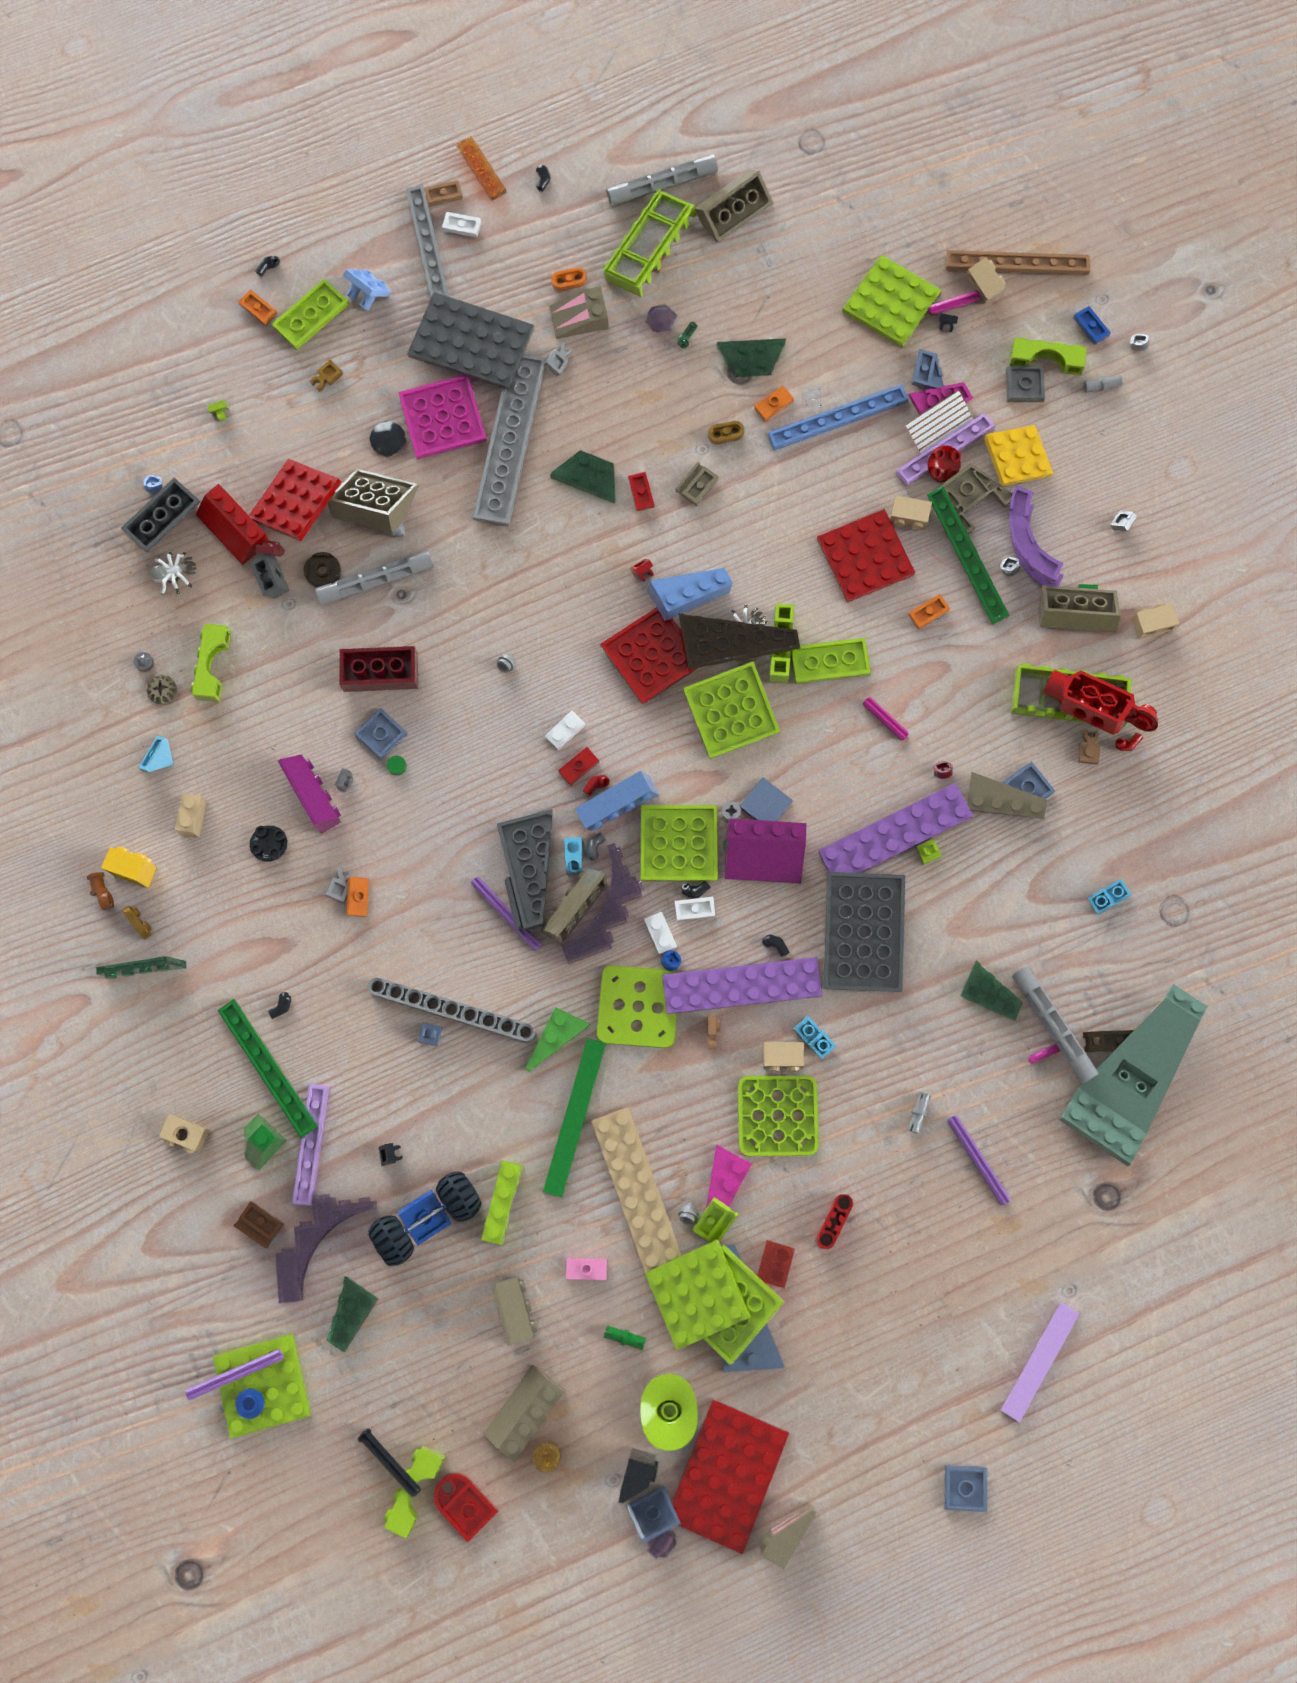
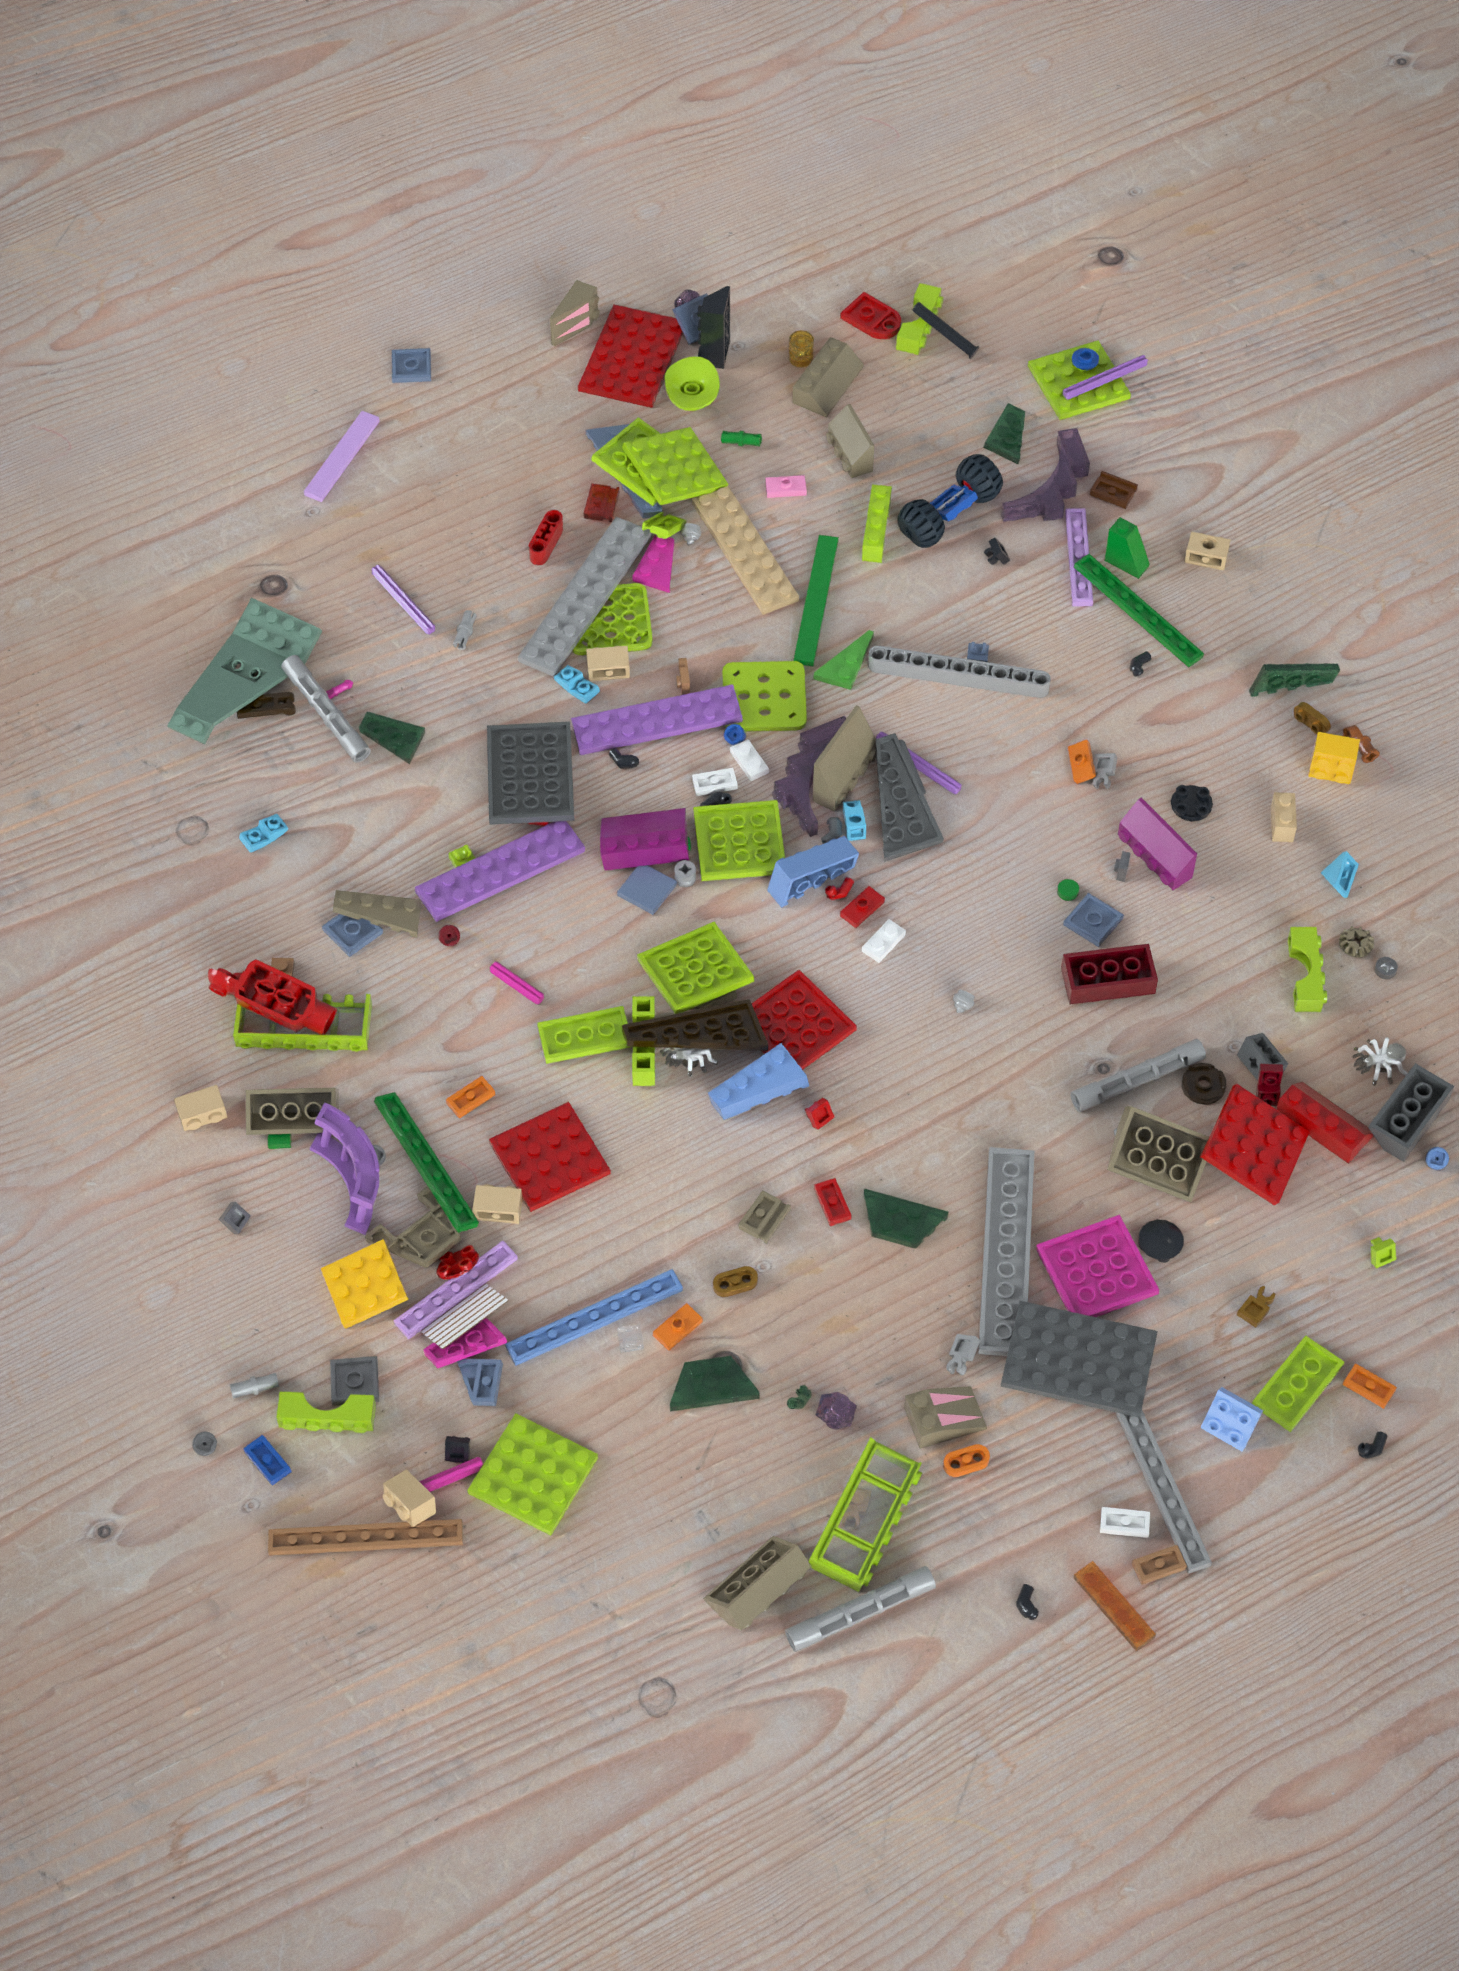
camera: 170 degrees right, 20 degrees down
(799, 1142) = (584, 596): none -> light grey plate

